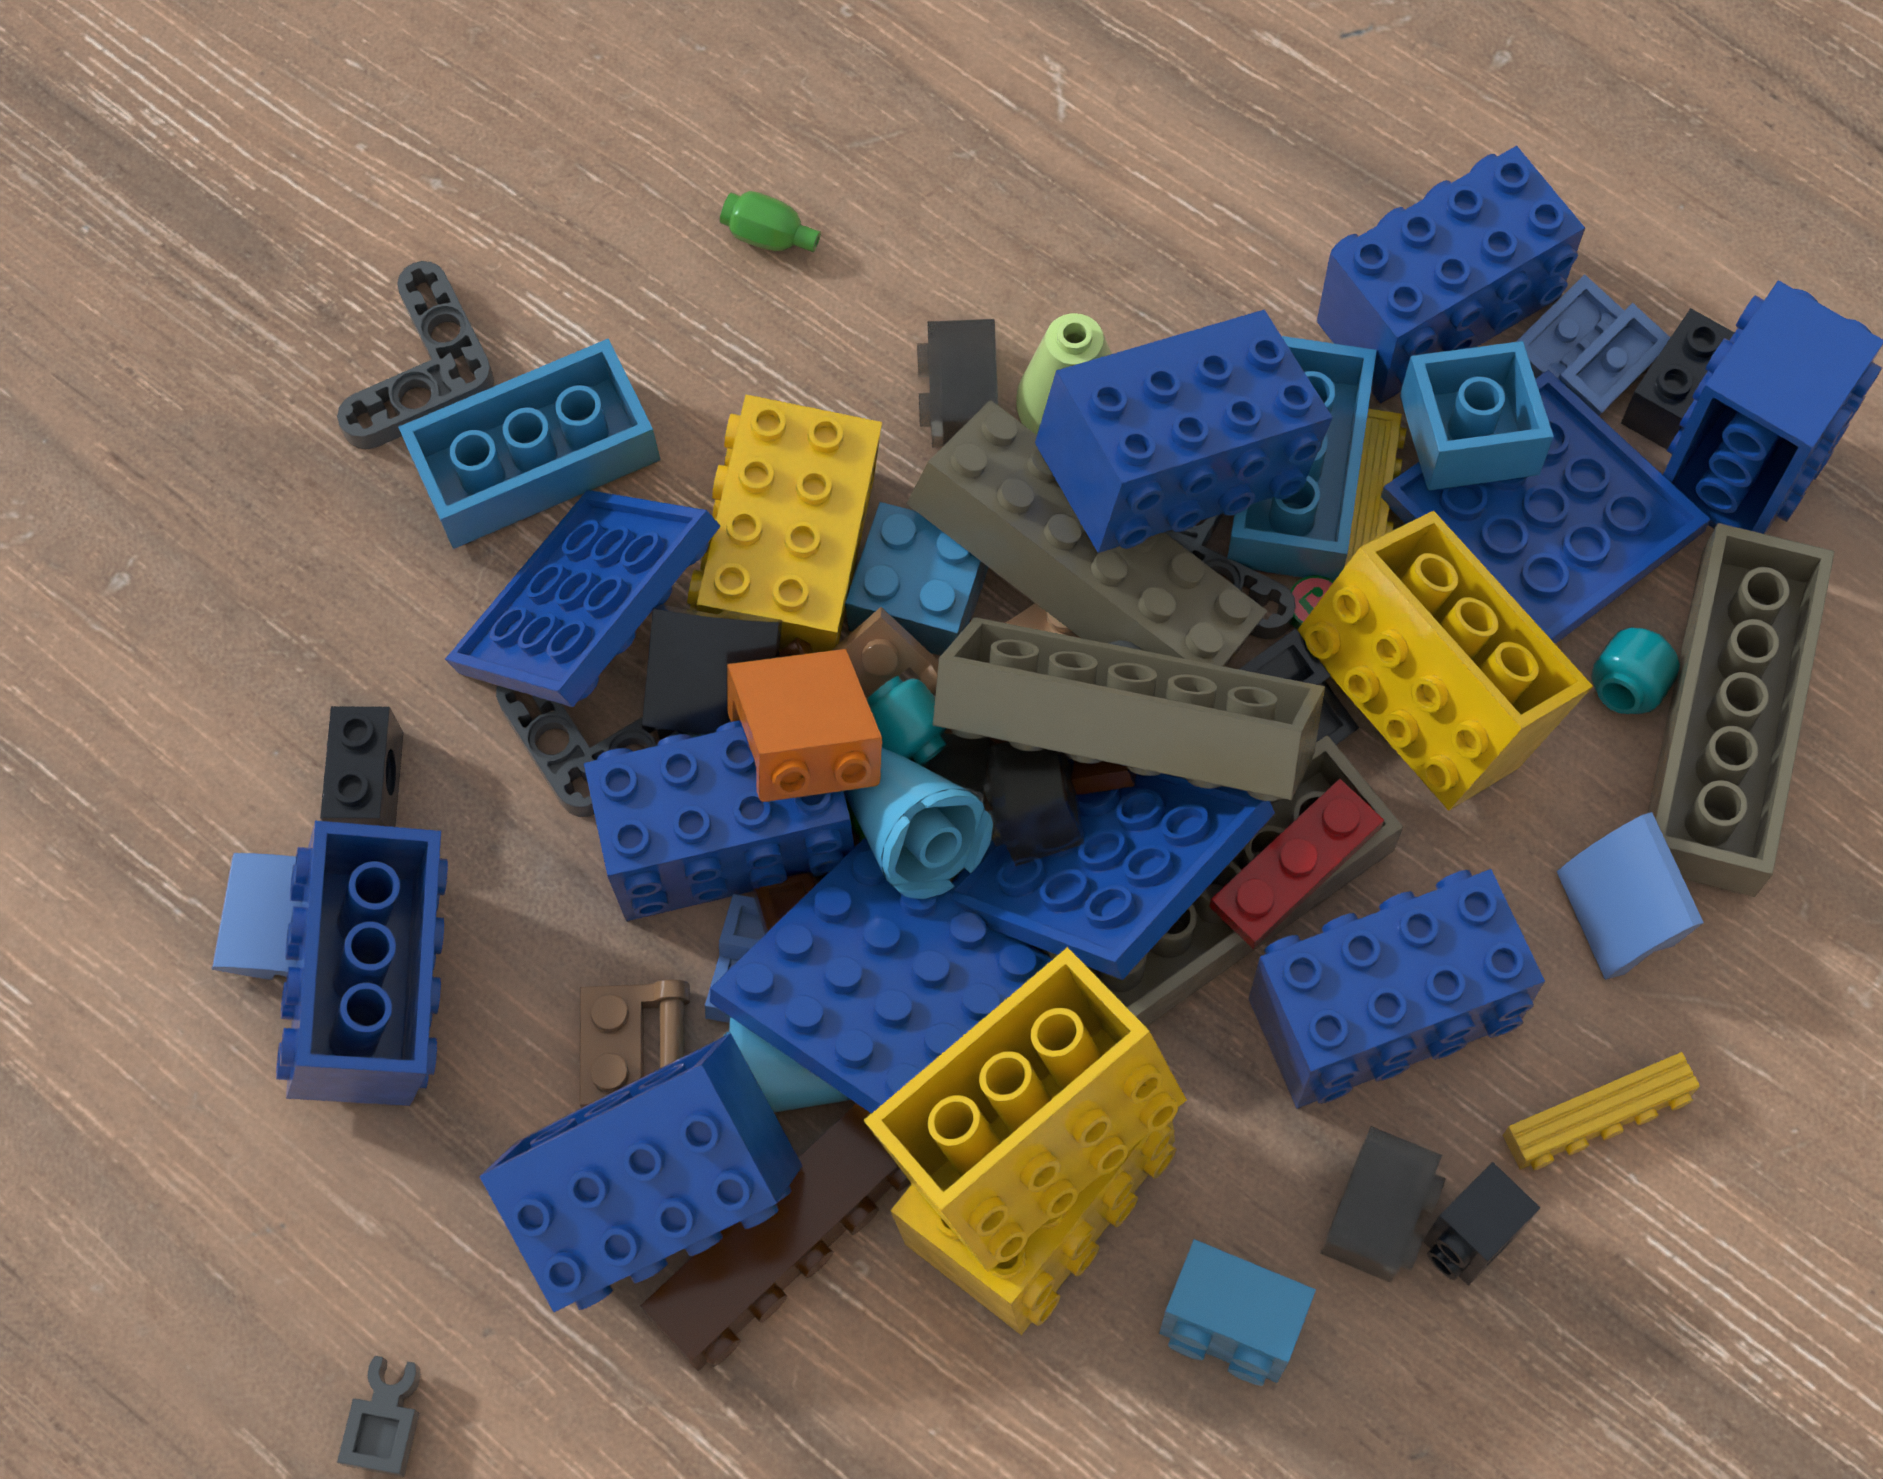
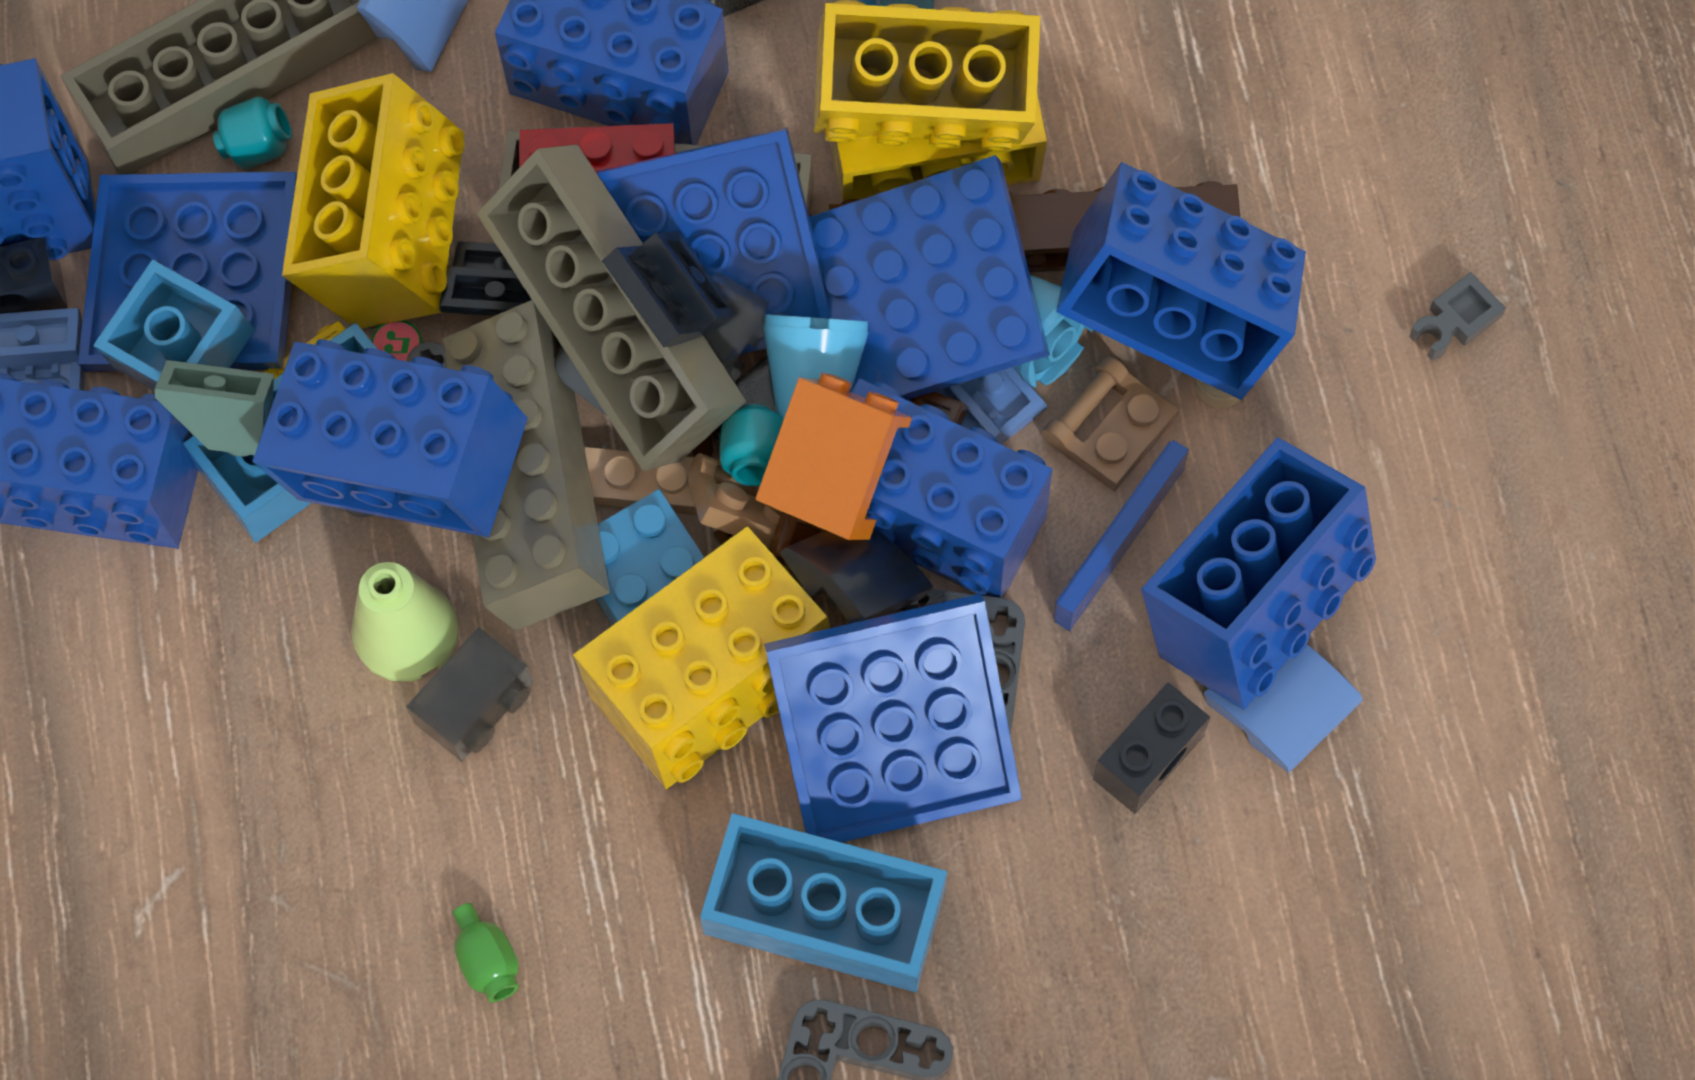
camera: 140 degrees left, 0 degrees up
(537, 941) = (1120, 535): none -> blue tile
(1075, 735) = (670, 288): none -> black slope
(1368, 363) = (218, 404): none -> sand green slope

